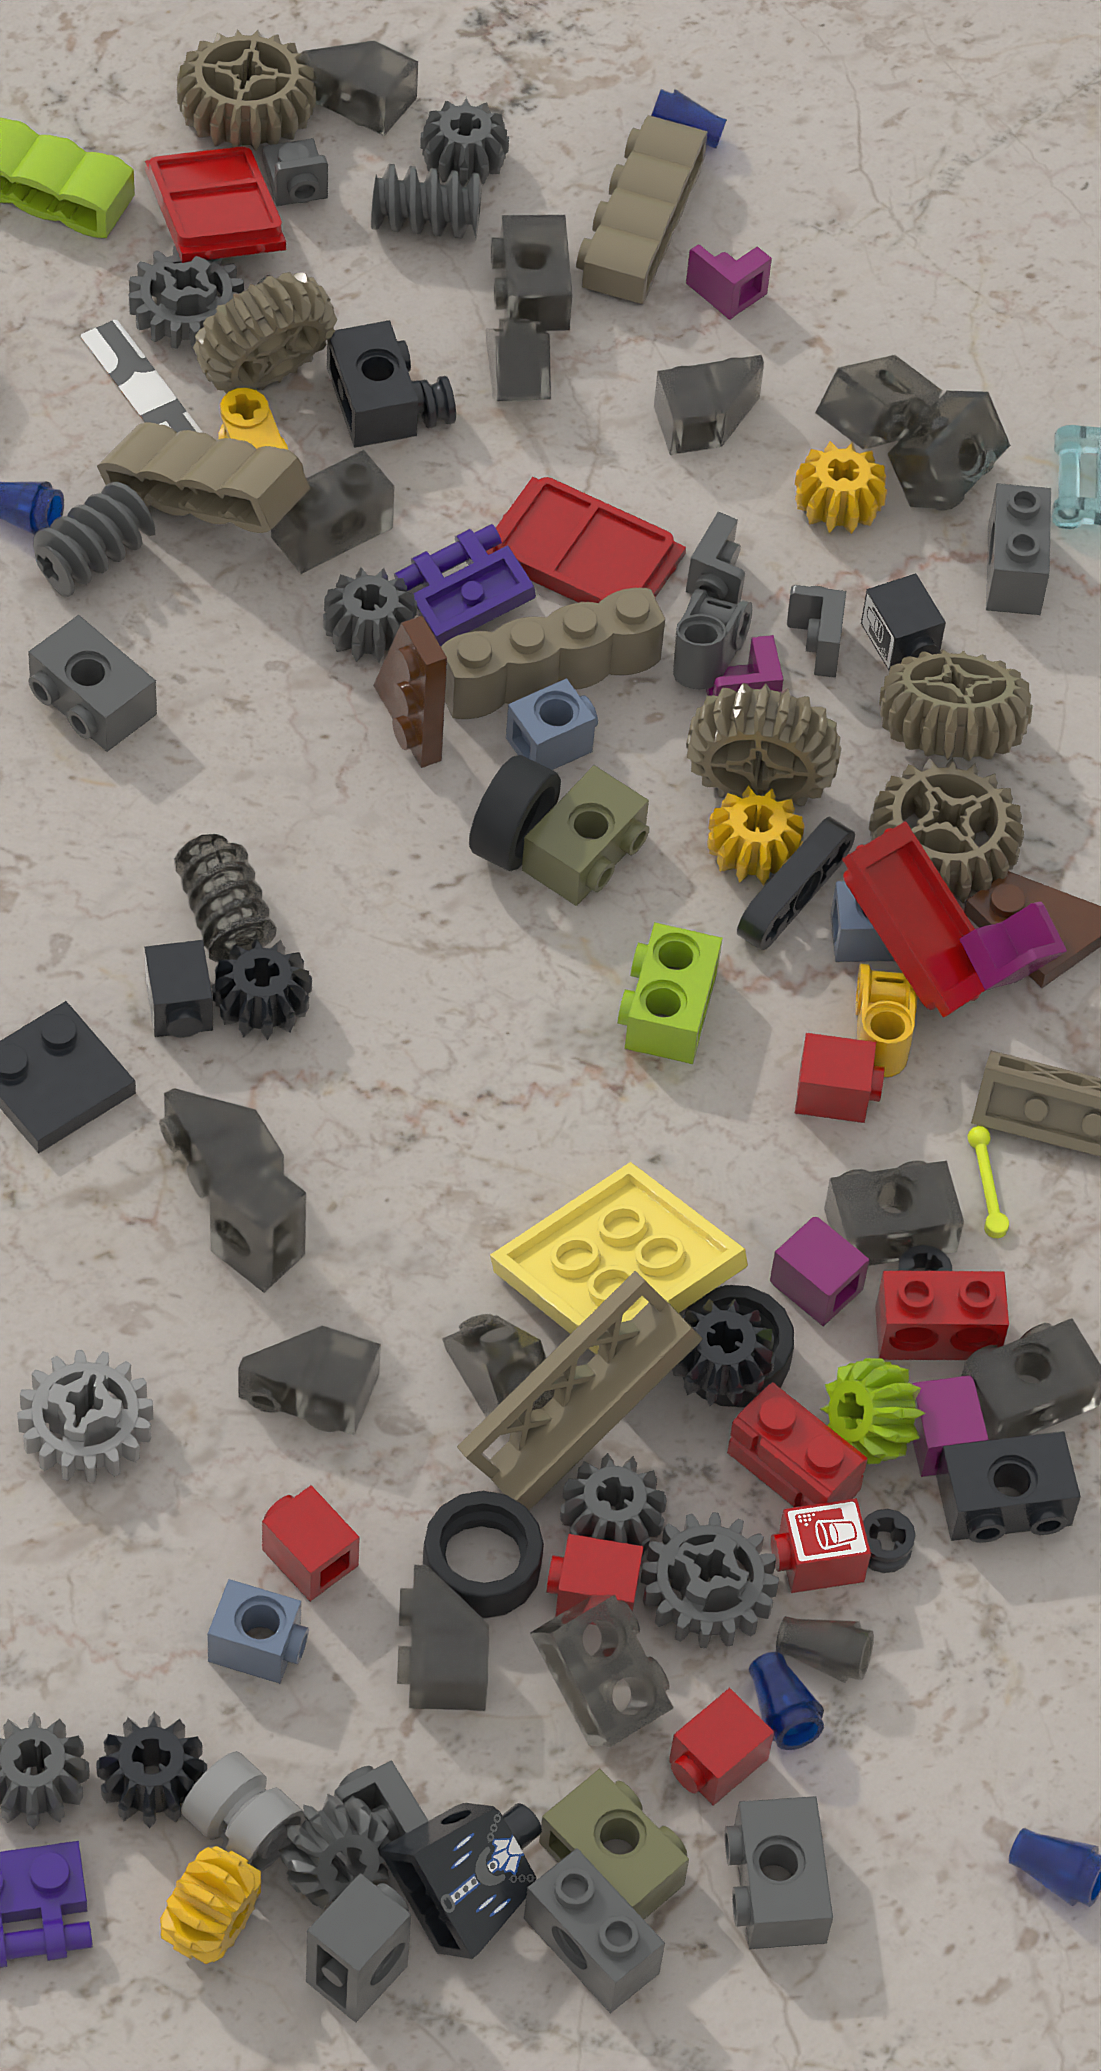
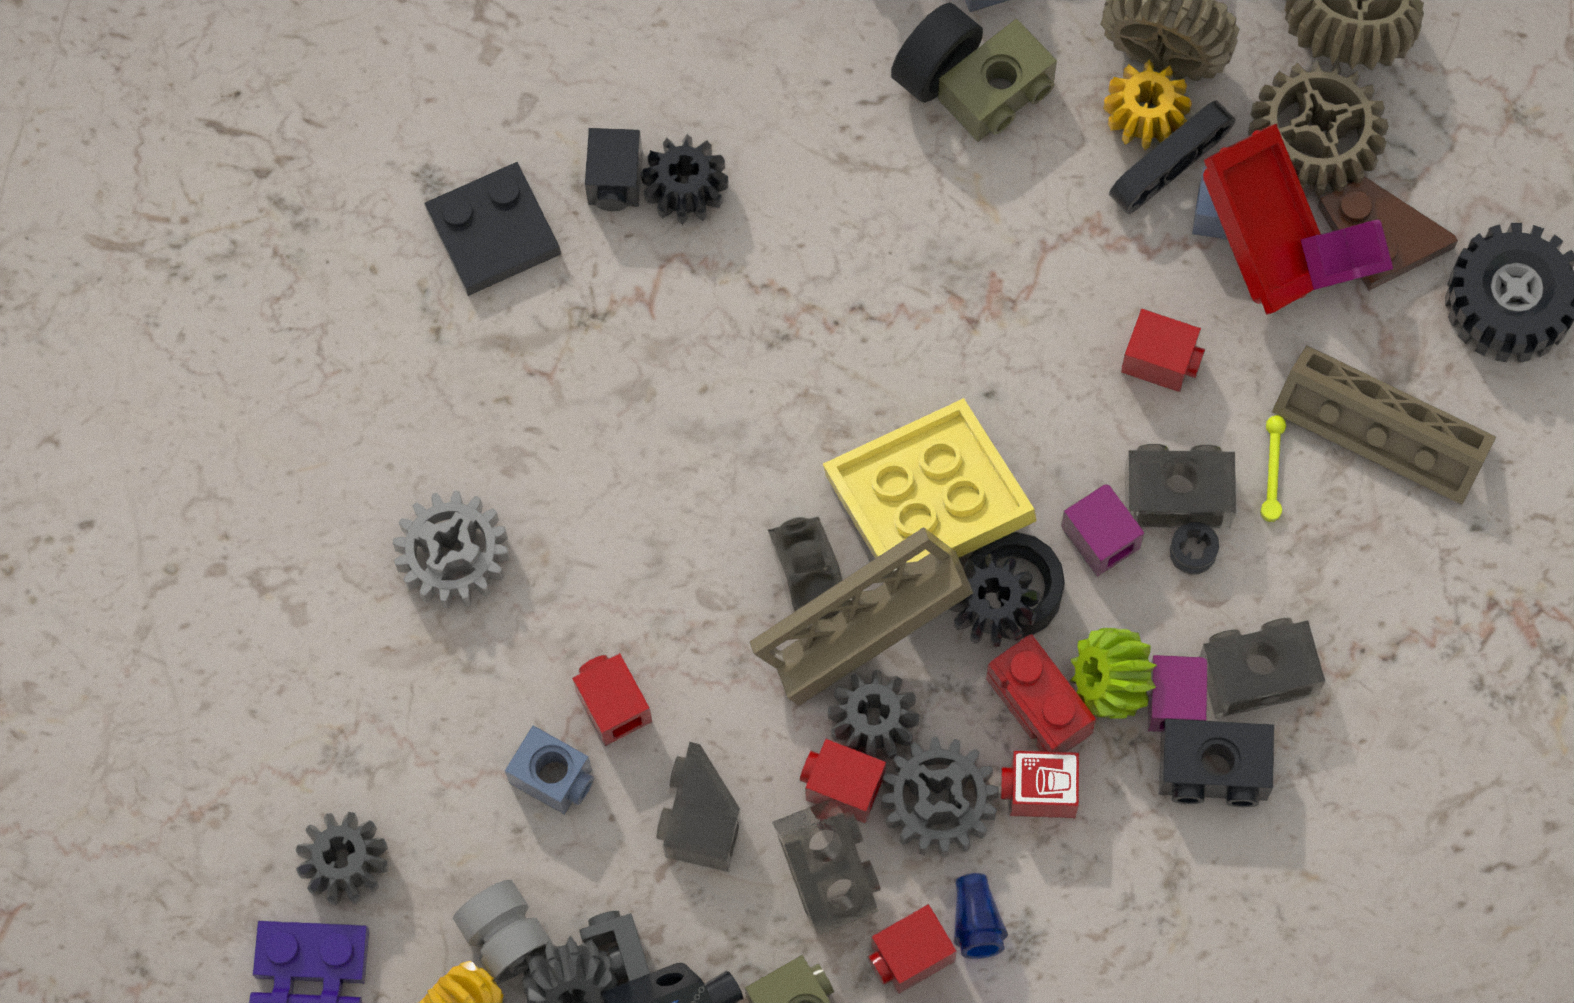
camera: 20 degrees right, 15 degrees up
(150, 1746) = (417, 885): black gear -> none
(213, 1135) = (622, 325): clear smoke slope -> none
(223, 895) = (669, 88): clear smoke piece -> none
(257, 1220) = (627, 401): clear smoke brick -> none
(313, 1376) = (651, 549): clear smoke slope -> none
(494, 1512) = (739, 698): black tyre -> none
(675, 993) = (1045, 247): lime brick -> none
(829, 1646) = (1027, 875): clear smoke cone -> none
(886, 1016) = (1220, 294): yellow piece -> none
(900, 1531) = (1116, 780): black bush -> none
(940, 1314) = (1197, 591): red brick -> none

